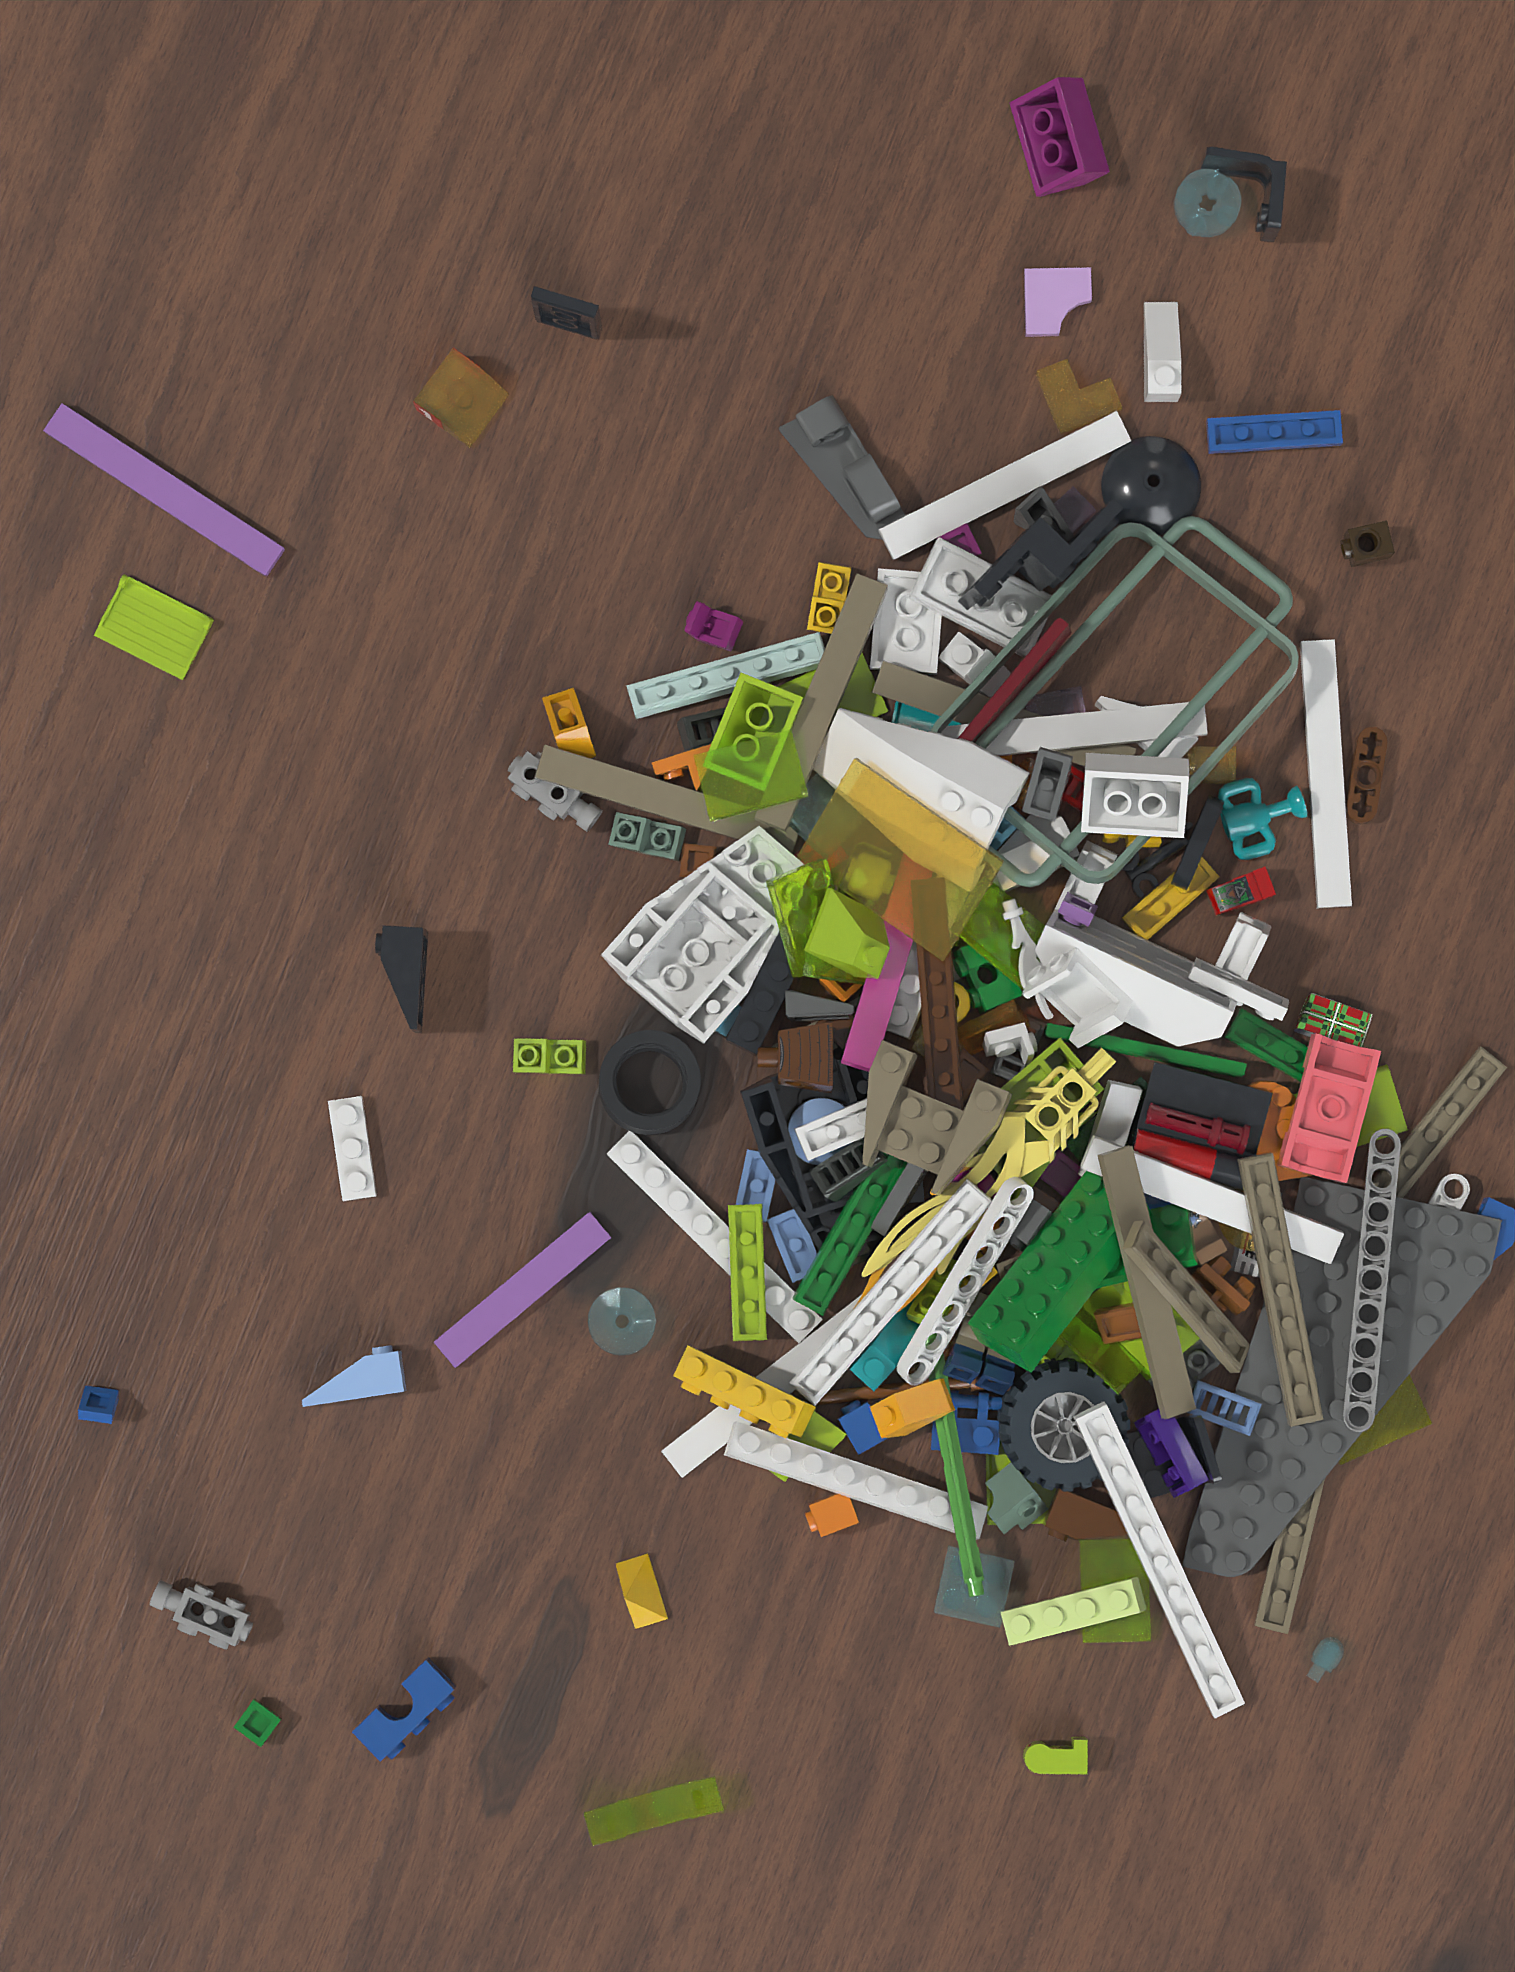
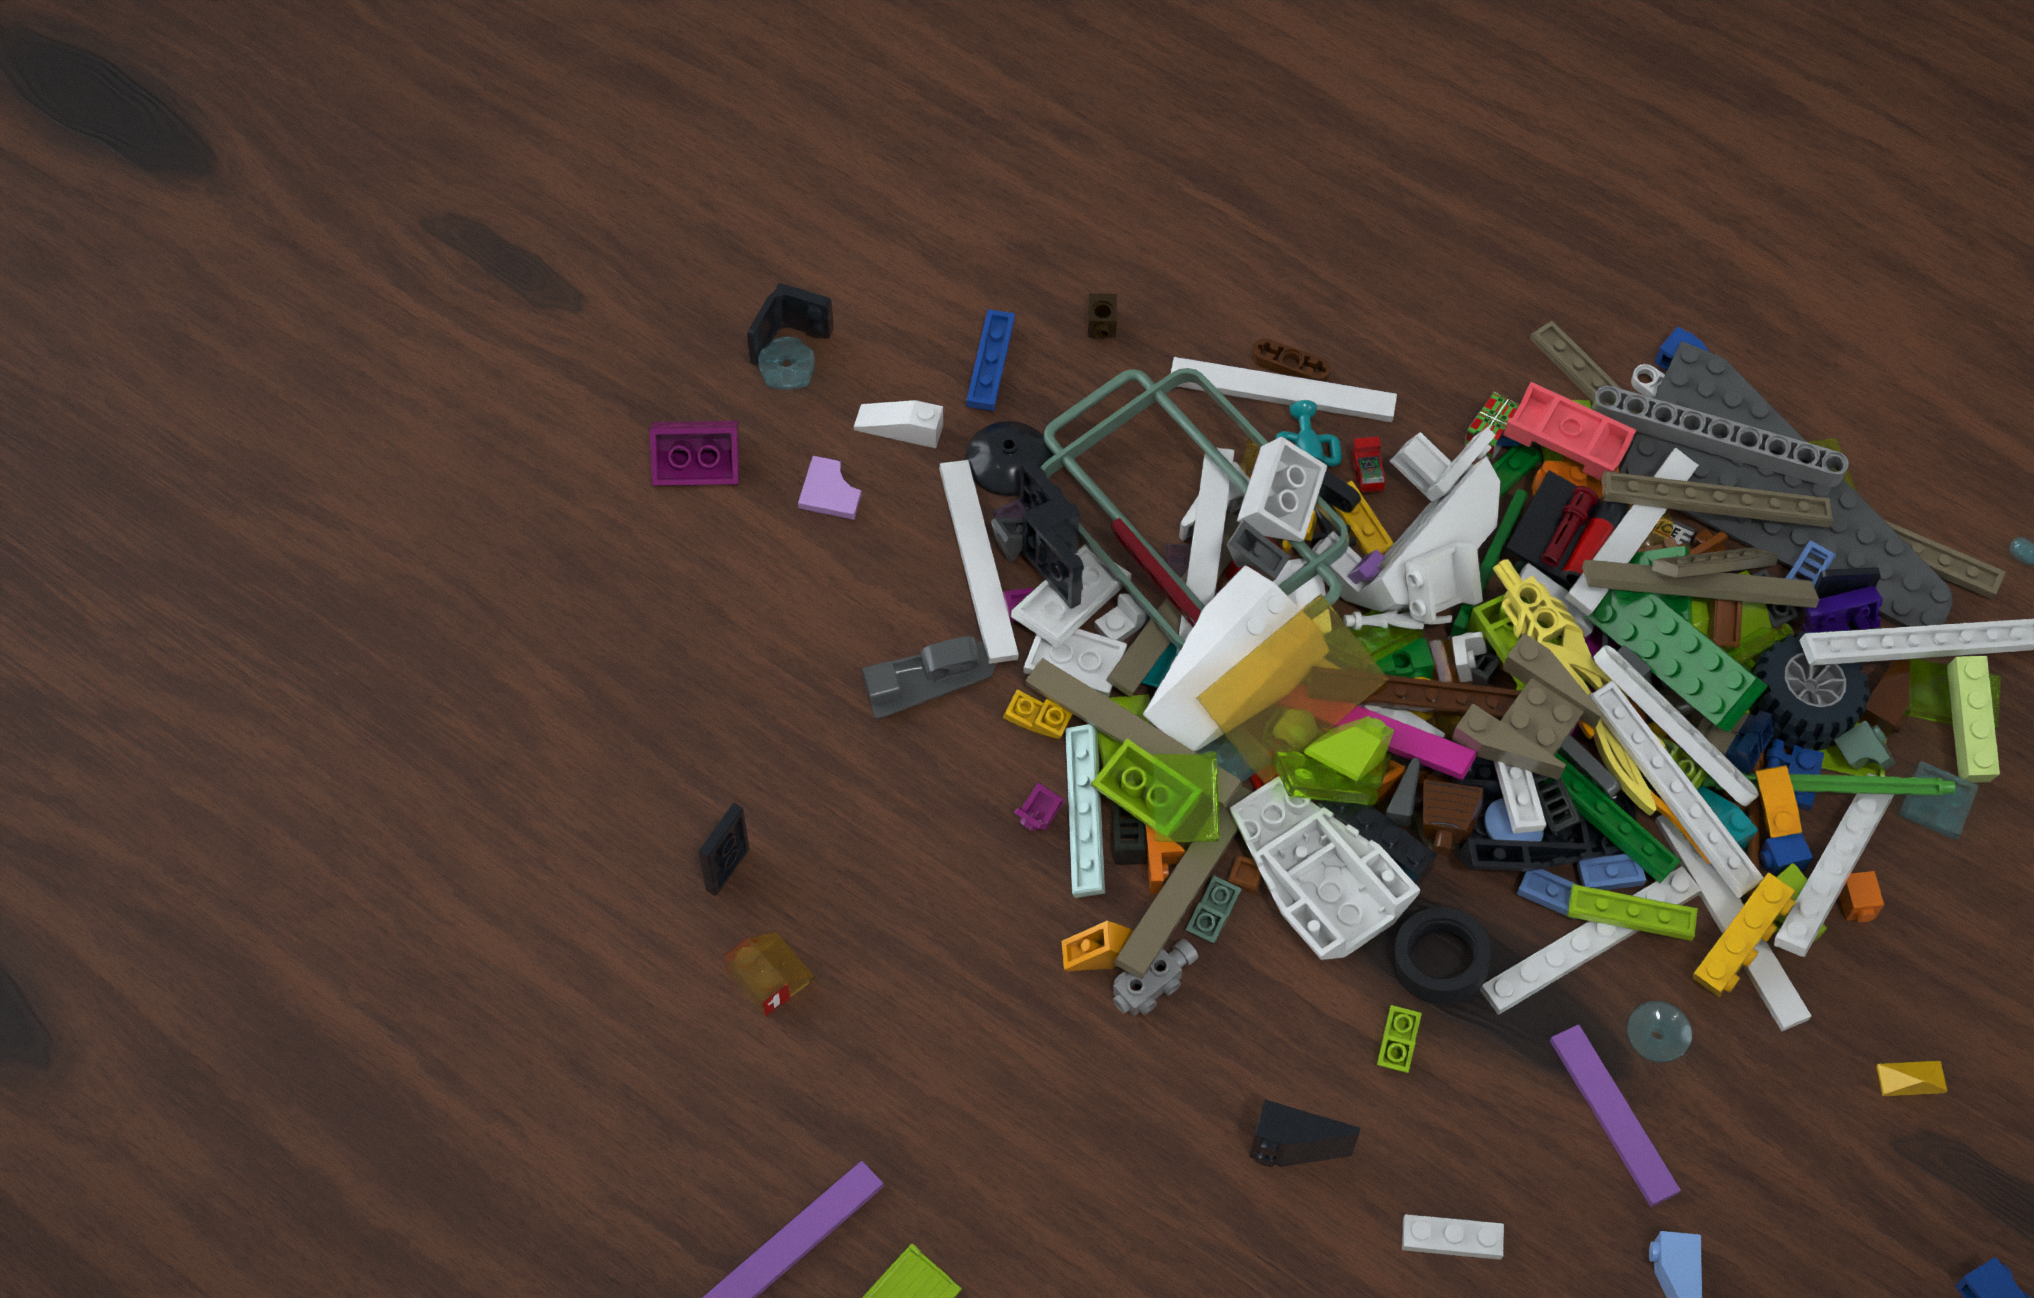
camera: 75 degrees left, 25 degrees down
(1075, 406) = (921, 499): clear yellow plate -> none

